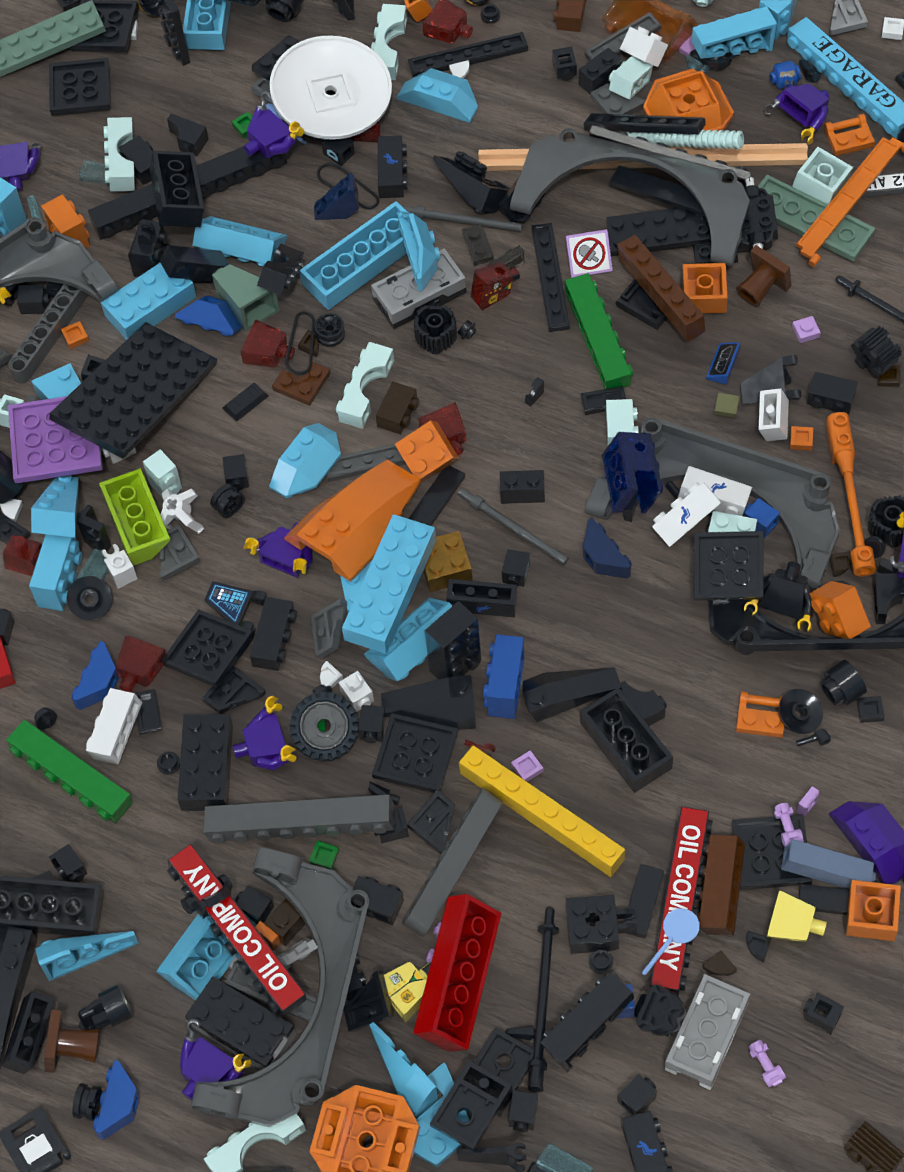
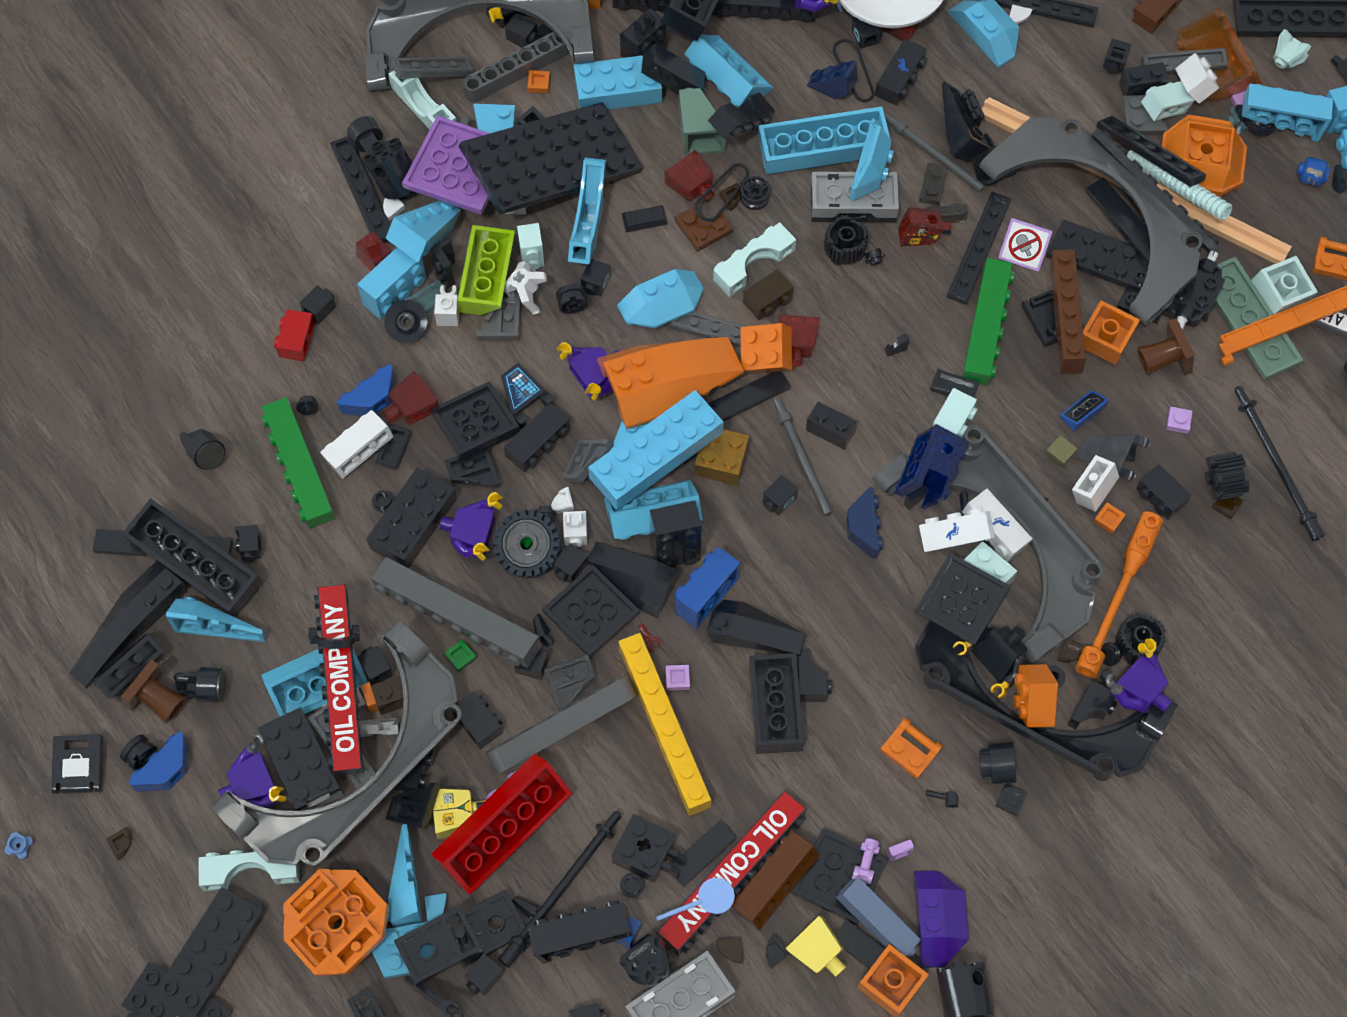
camera: 25 degrees right, 5 degrees up
(196, 417) = (589, 212): none -> medium azure arch
(210, 314) = (661, 125): blue slope -> none
(484, 597) = (732, 506): black brick -> none
(766, 516) = (1027, 569): blue brick -> none
(805, 105) = (1312, 210): dark purple torso -> none
(808, 707) = (956, 763): black dish -> none

